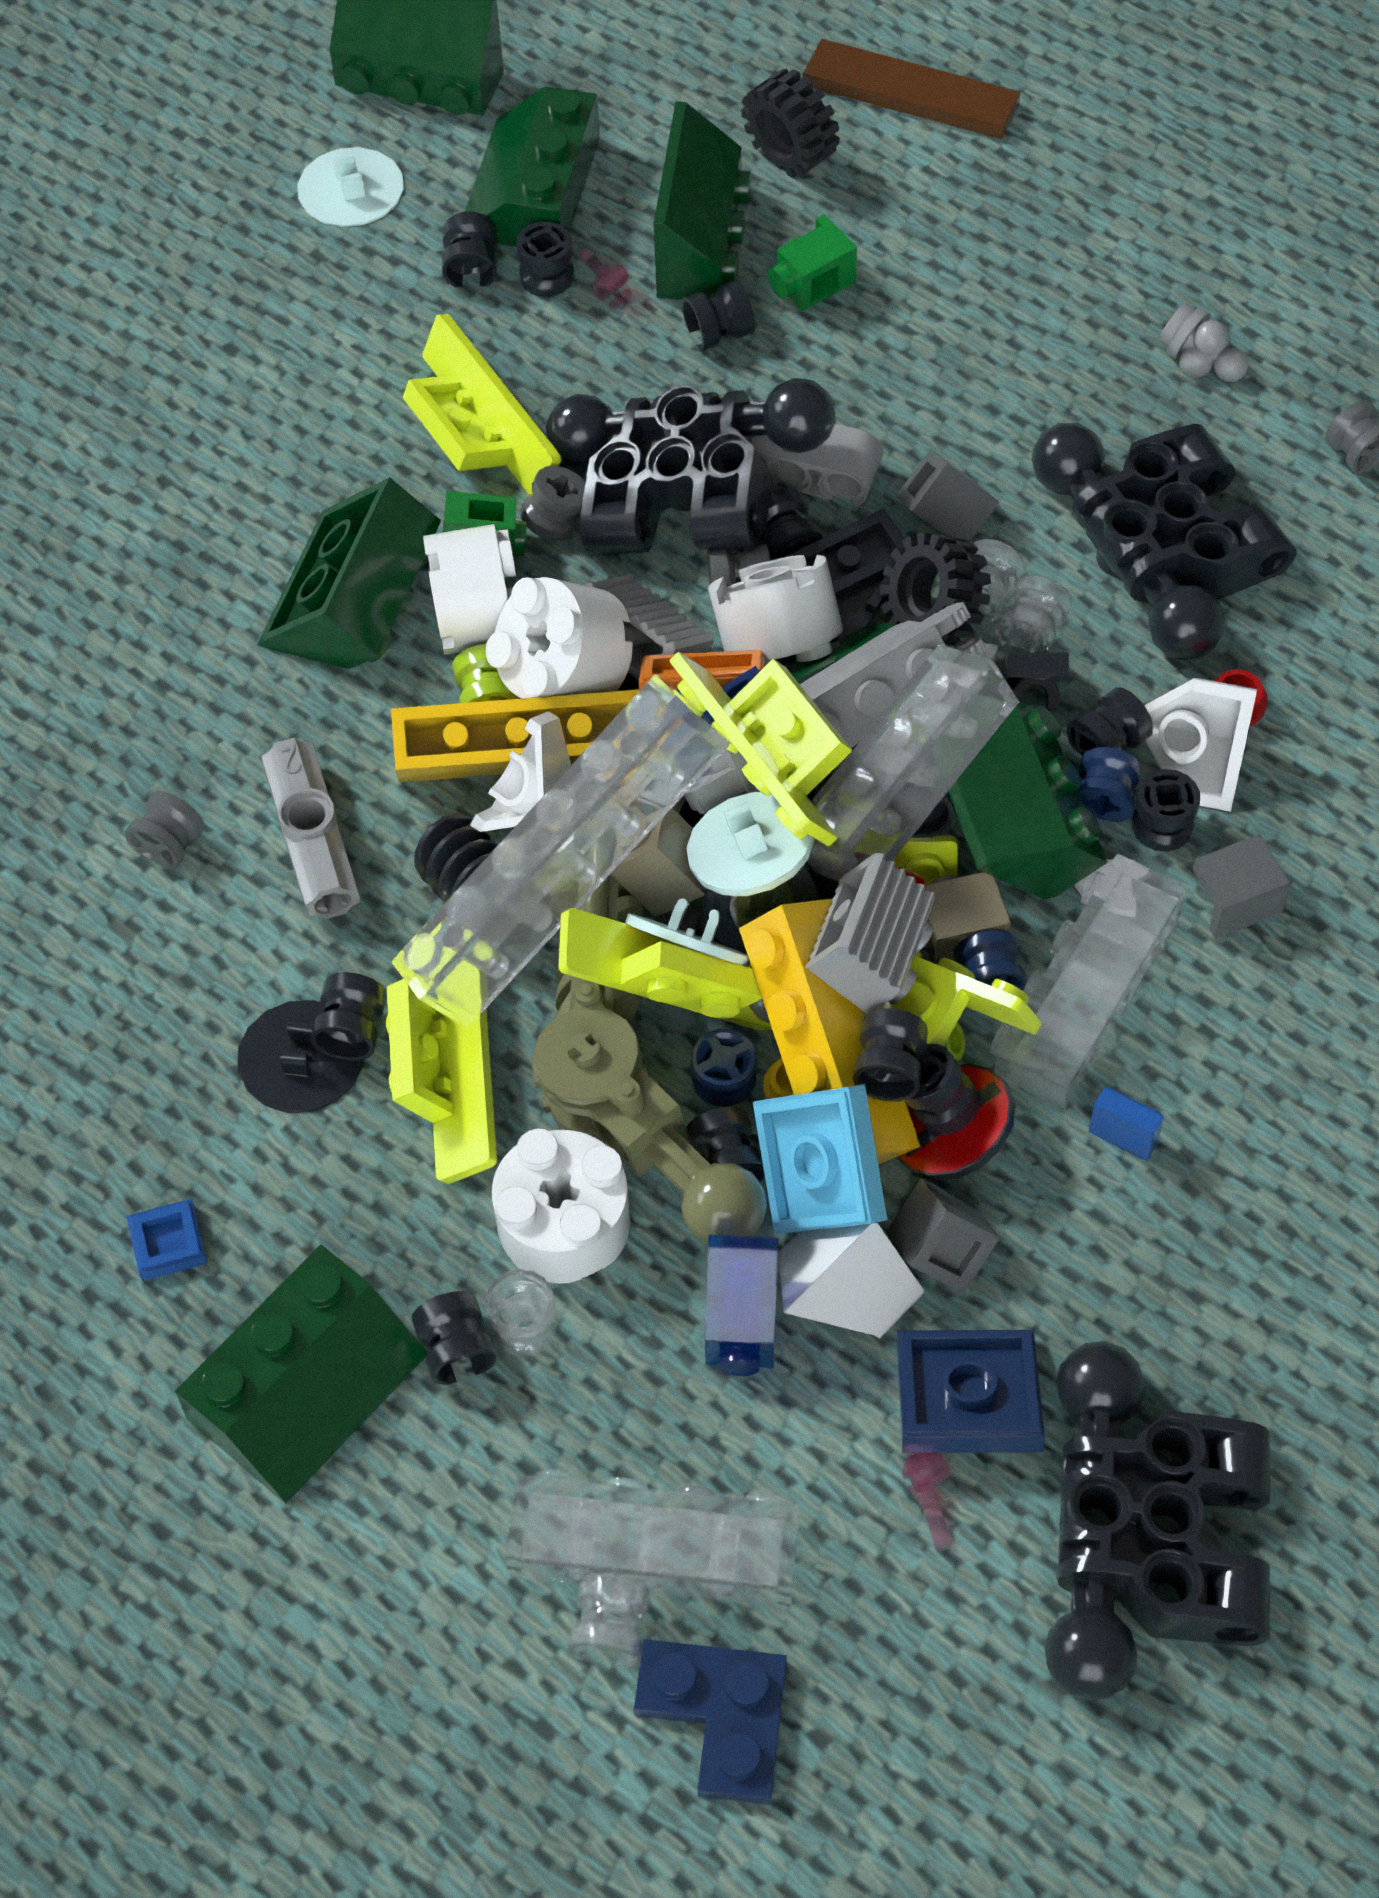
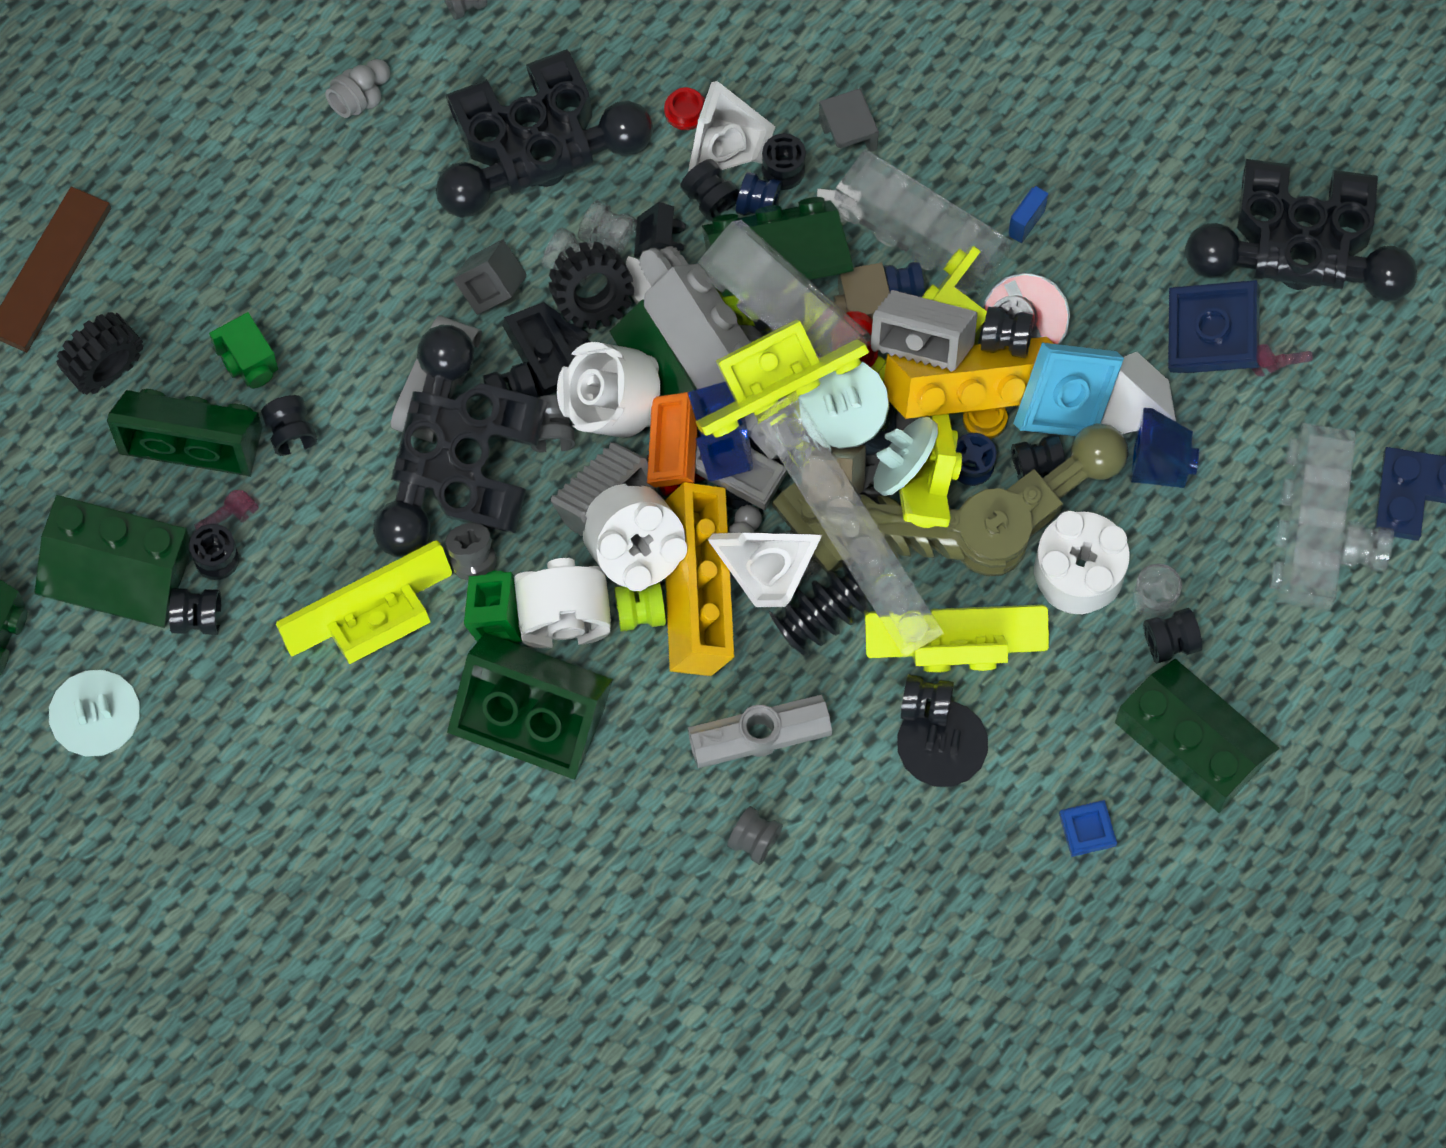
camera: 90 degrees left, 10 degrees up
(942, 1235) = (1105, 328): dark grey panel -> none

